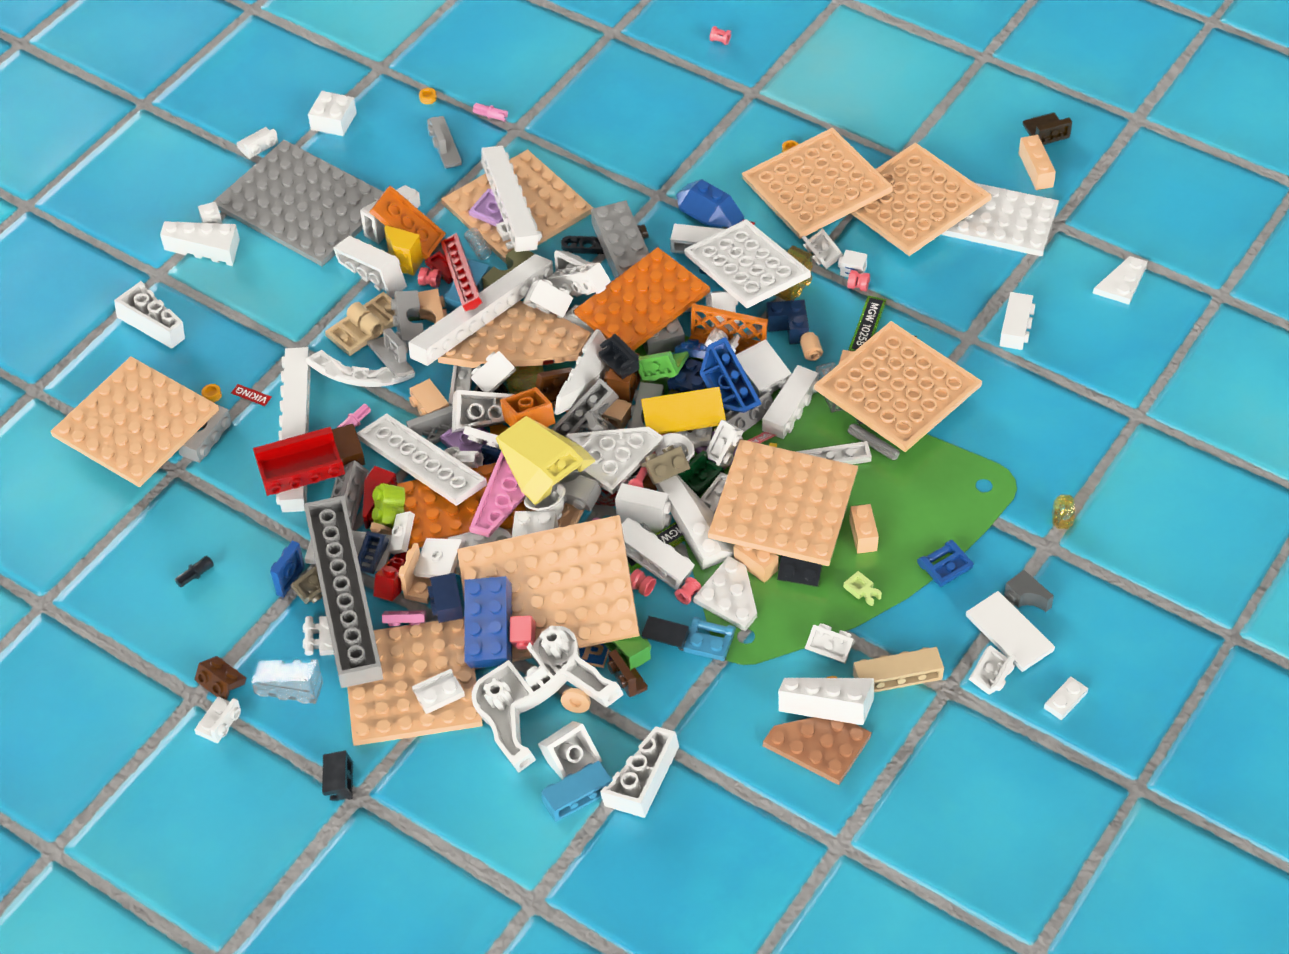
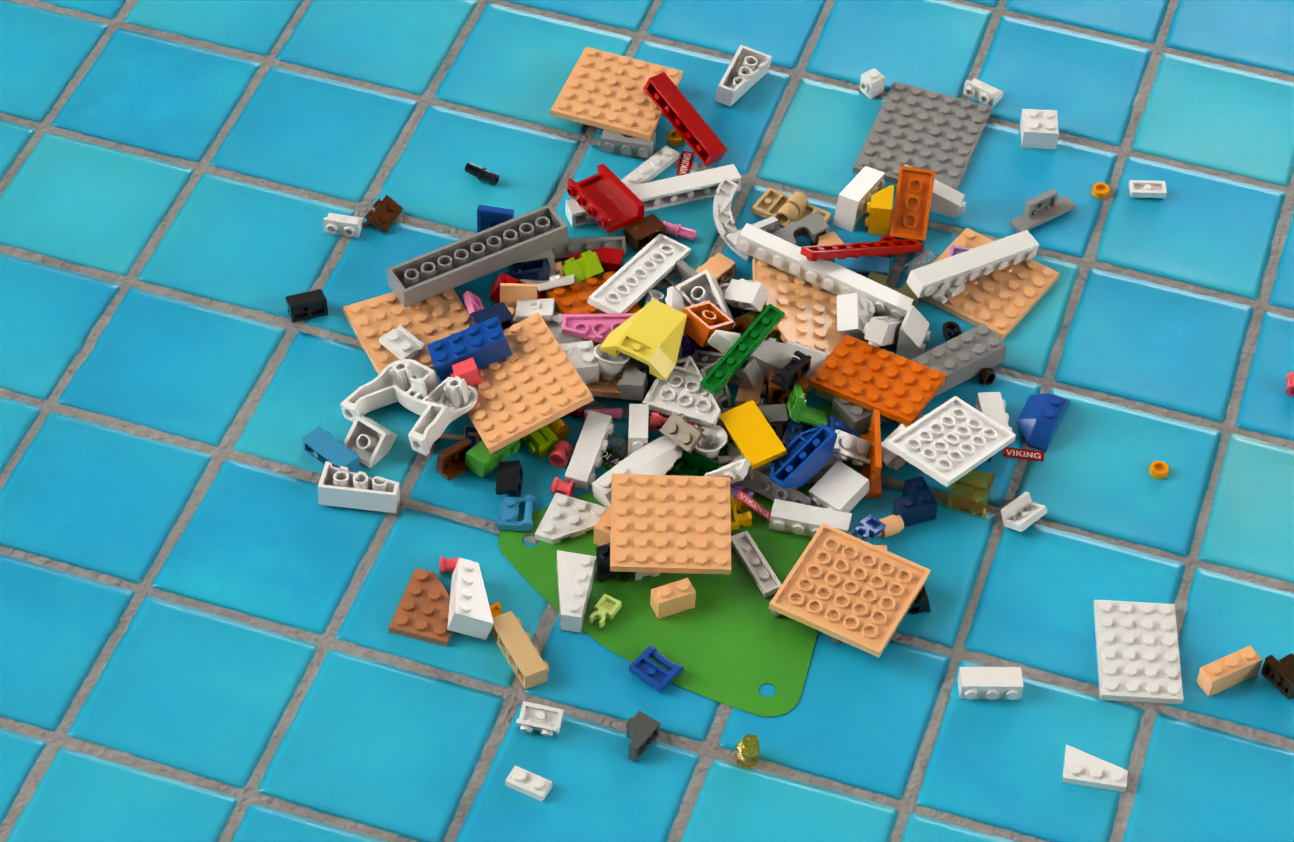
camera: 70 degrees right, 5 degrees down
(202, 239) = (844, 89): white wedge -> none
(206, 369) = (685, 119): none -> red brick
(247, 421) = (652, 167): none -> white plate
(288, 681) = (386, 251): clear wedge -> none
(429, 277) = (862, 235): coral wheel -> none
(442, 63) = (1147, 189): none -> white plate
(490, 112) = (1097, 237): bright pink axle -> none
(587, 384) = (742, 349): none -> green tile
(768, 709) = (447, 564): none -> coral bush
(816, 183) = (1109, 492): light nougat plate -> none
(820, 354) = (869, 527): none -> blue plate
(829, 643) = (536, 596): white bracket -> none
(832, 606) = (575, 583): none -> white wedge
(852, 261) = (1012, 541): white brick -> none
(858, 280) = (992, 549): coral wheel -> none
(868, 321) = (948, 567): tile -> none
(924, 200) = (1122, 572): light nougat plate -> none
(1010, 631) = (590, 728): white tile -> none

